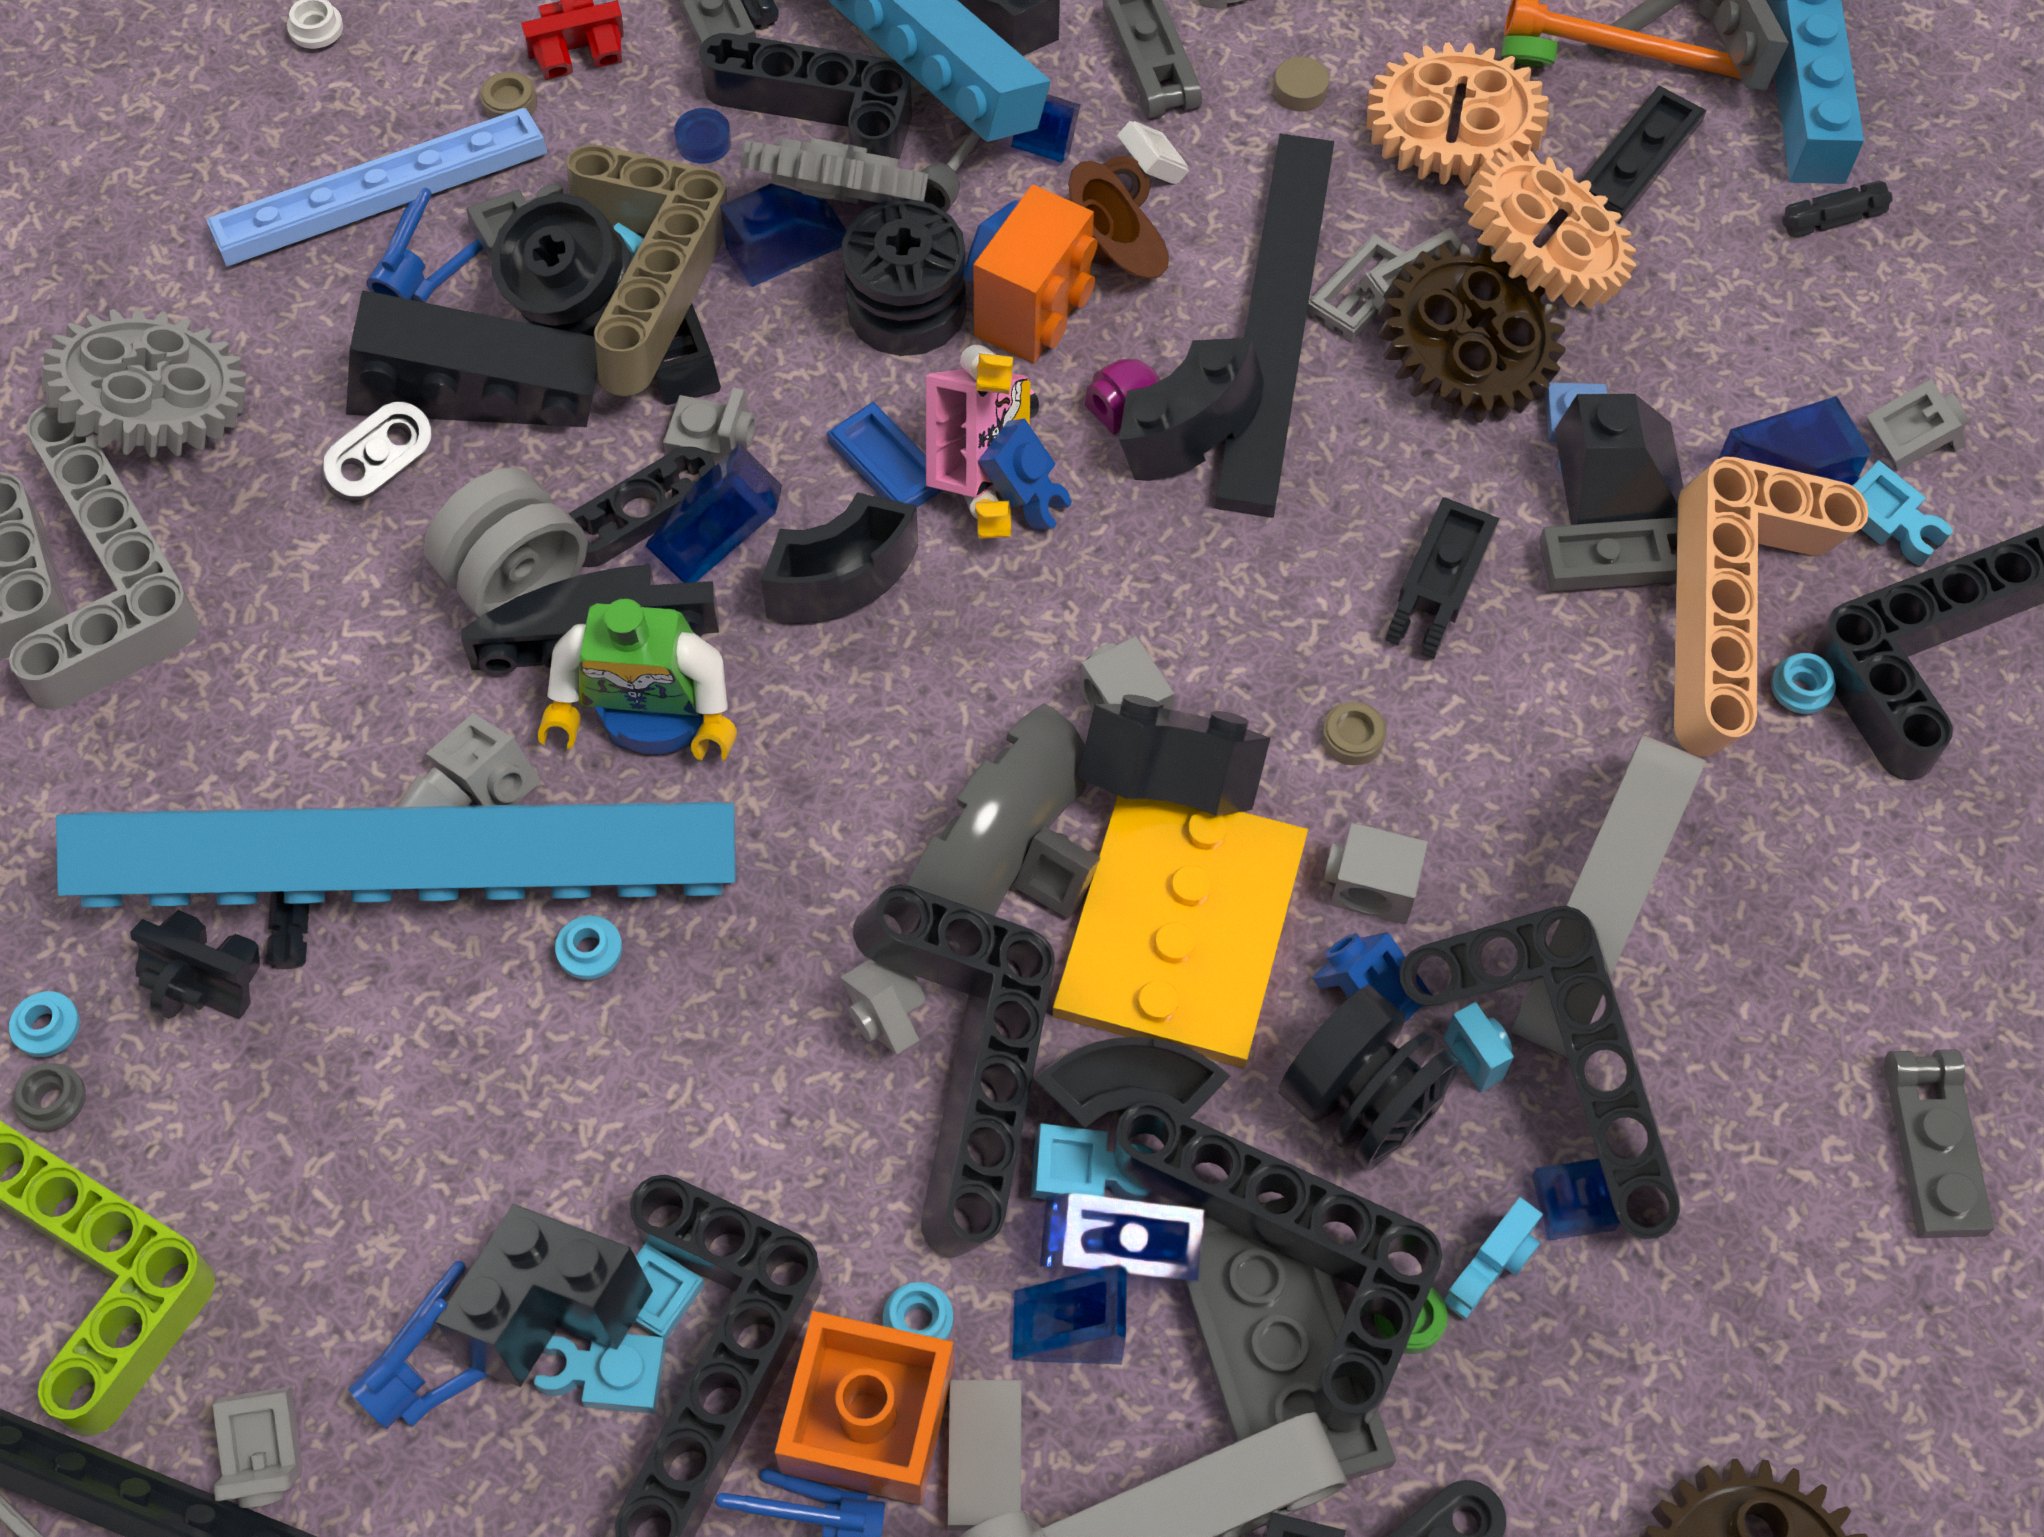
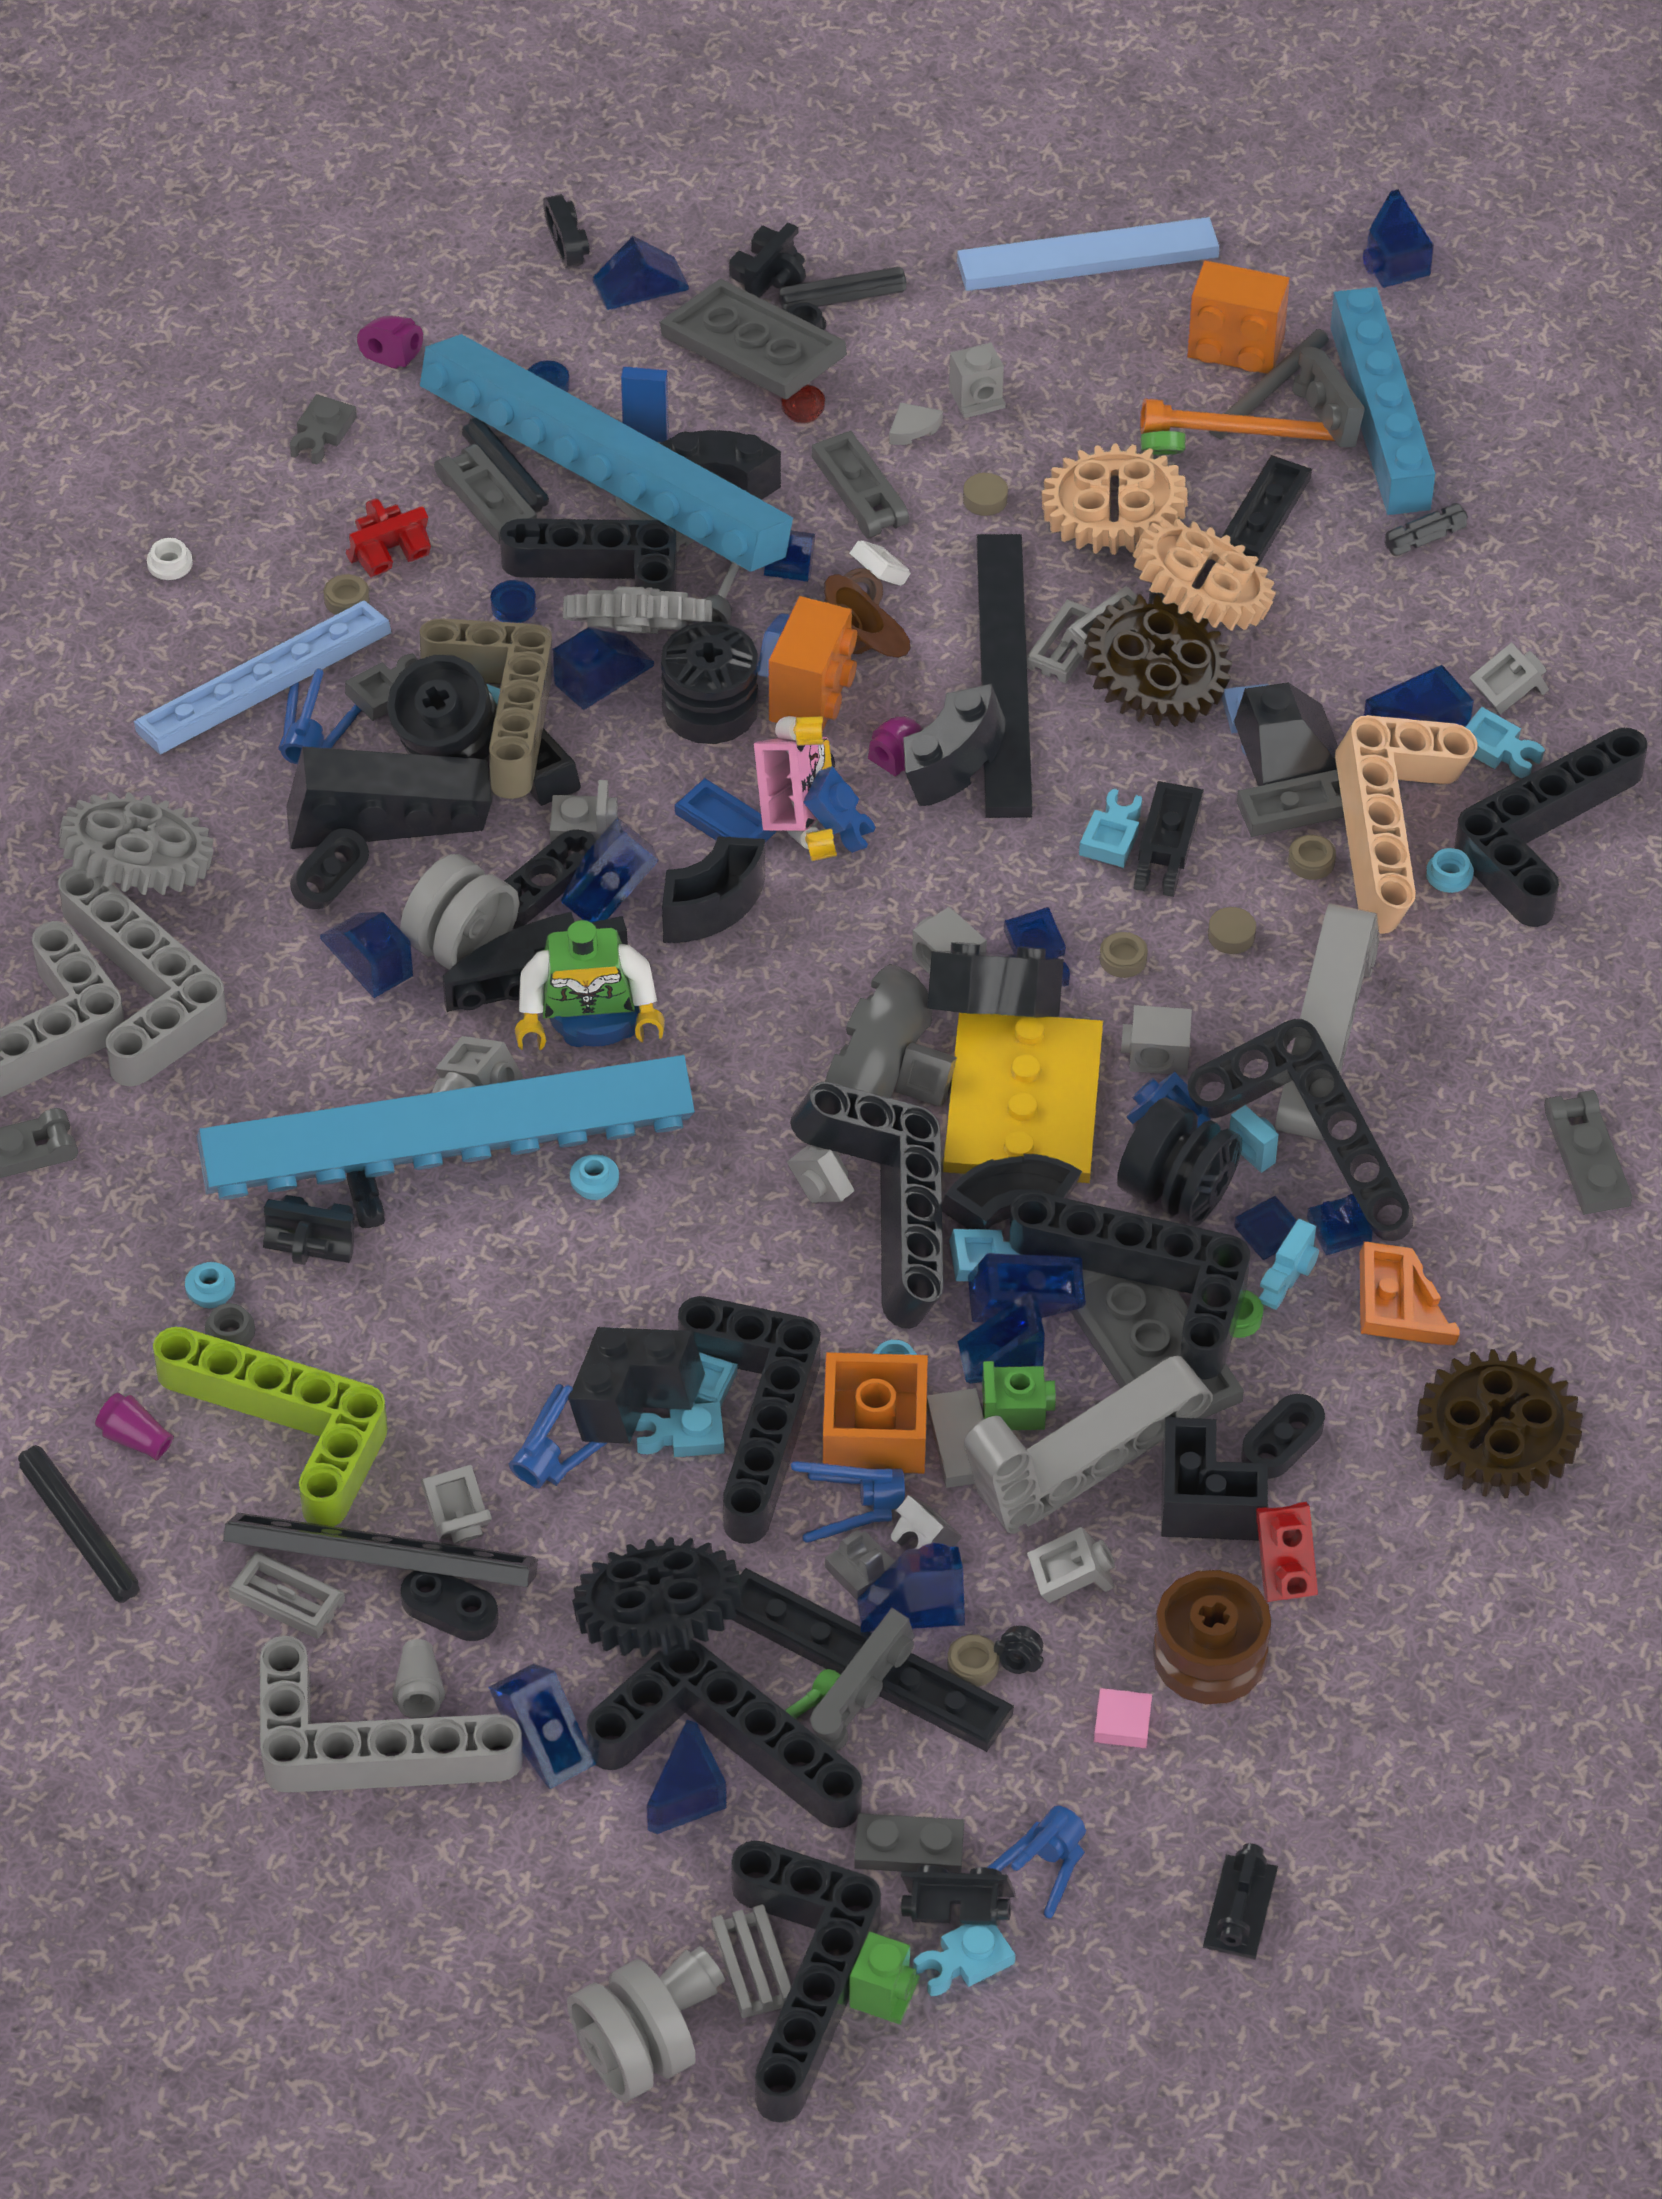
camera: 10 degrees left, 10 degrees down
(394, 574) = (372, 951): none -> clear blue slope
(1054, 1426) = (1017, 1395): none -> bright green brick
(1247, 691) = (1037, 930): none -> clear blue plate
(1372, 559) = (1112, 833): none -> medium azure plate
(1476, 1185) = (1265, 1226): none -> clear blue tile
(1502, 721) = (1232, 930): none -> dark tan tile
(1624, 632) = (1311, 857): none -> dark tan tile
(1640, 1338) = (1399, 1298): none -> orange wing

